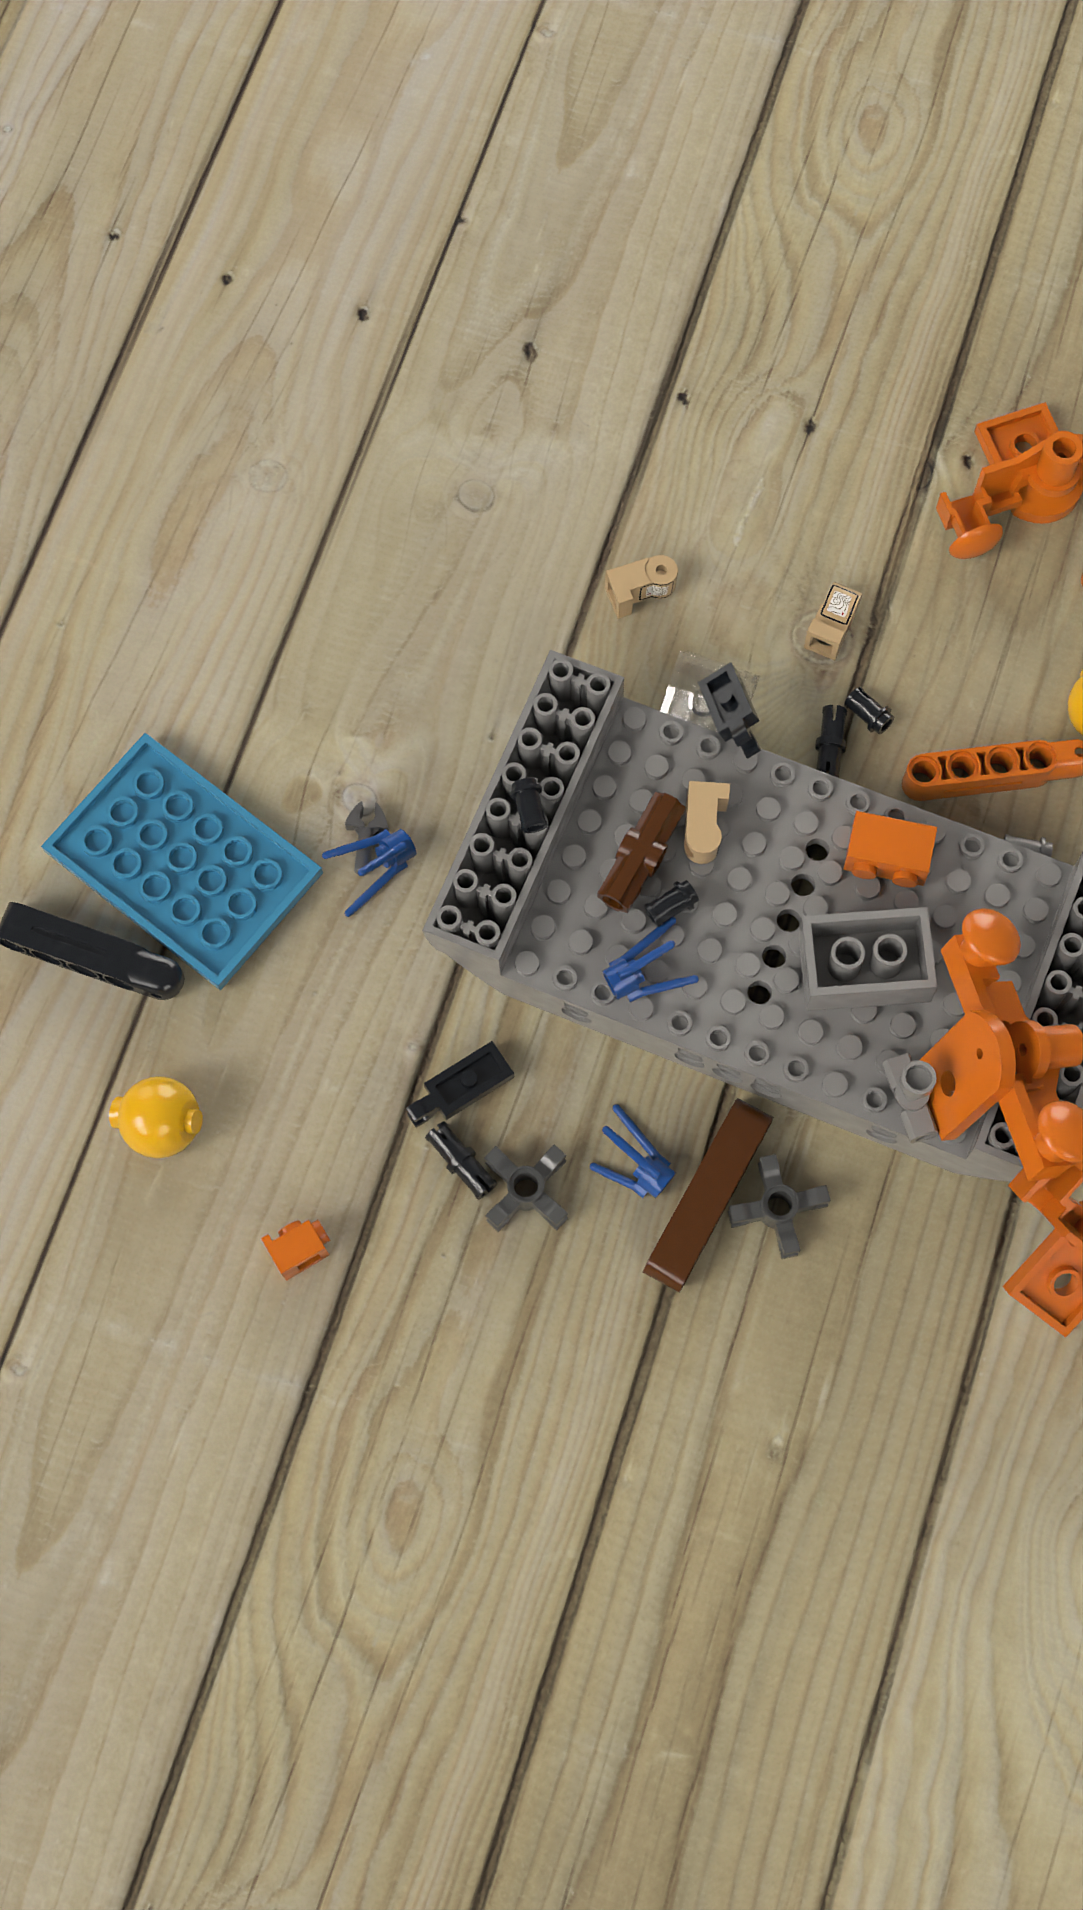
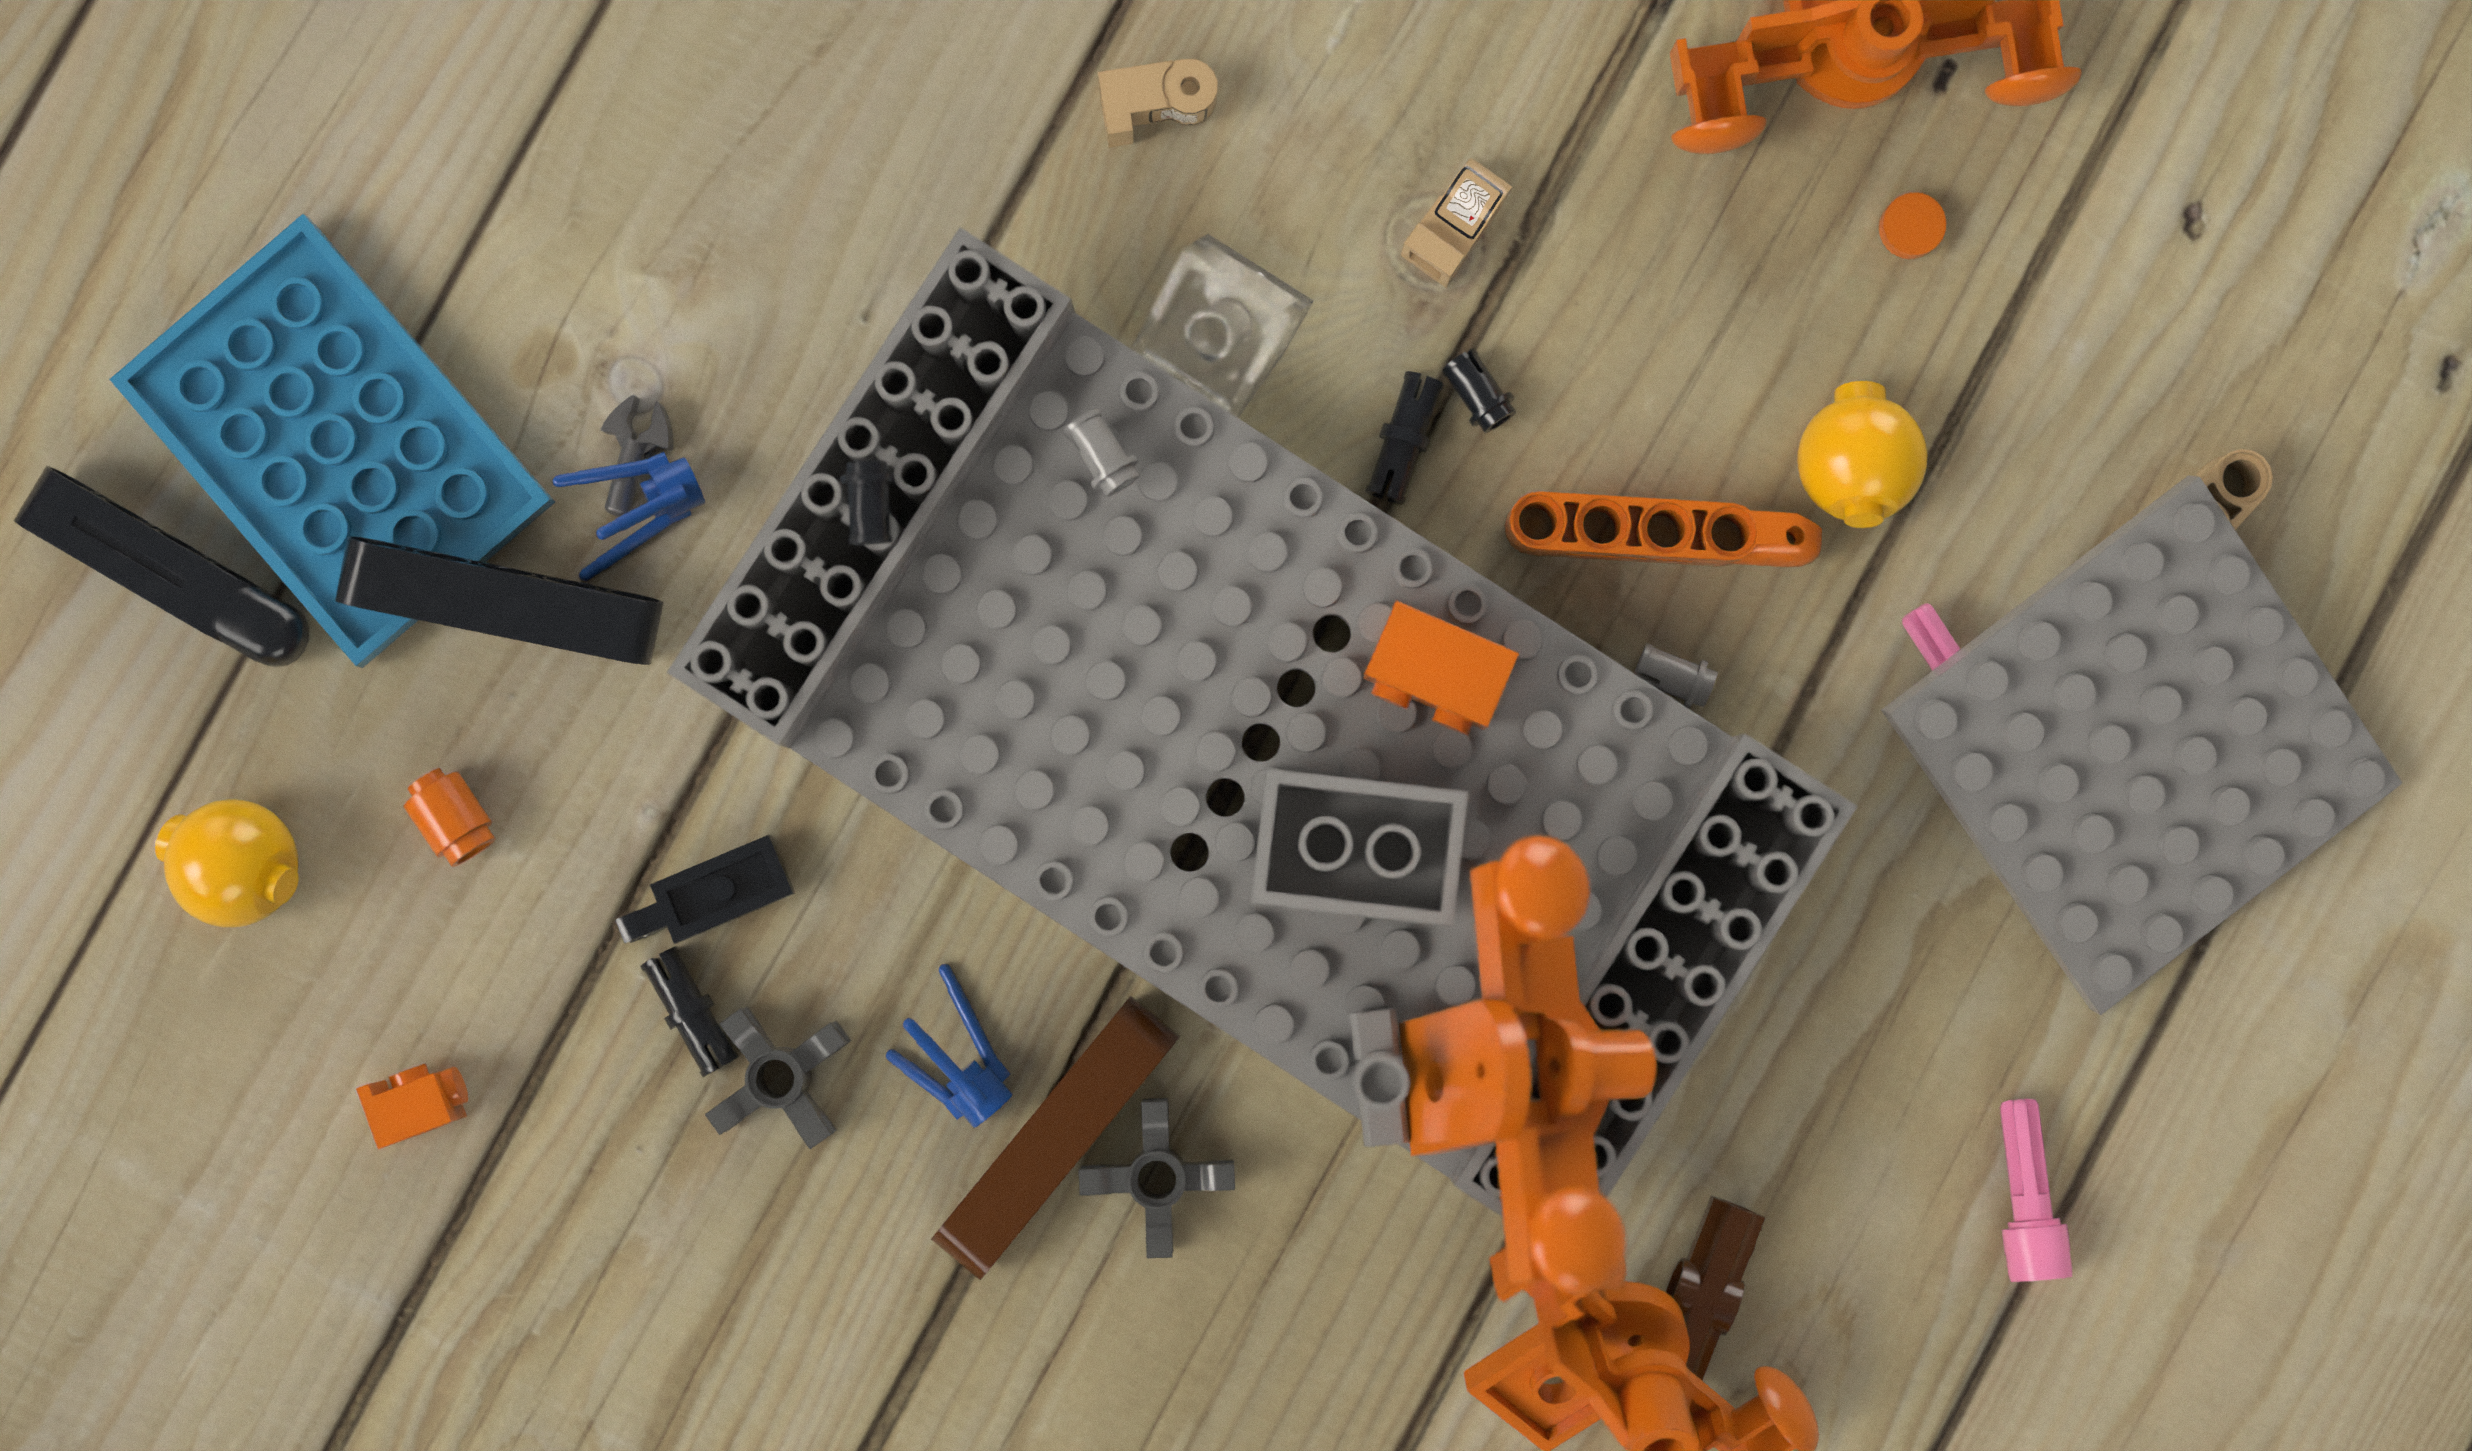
camera: 10 degrees right, 15 degrees up
(290, 1066) = (449, 816): none -> orange brick
(302, 928) = (498, 600): none -> black beam
(626, 974) = (977, 801): blue plant -> none
(641, 852) = (1043, 598): reddish brown piece -> none
(659, 765) = (1101, 453): none -> light grey pin
(672, 903) = (1075, 691): black pin -> none
(702, 833) = (1144, 581): tan leg -> none
(731, 708) = (1240, 373): black plate -> none

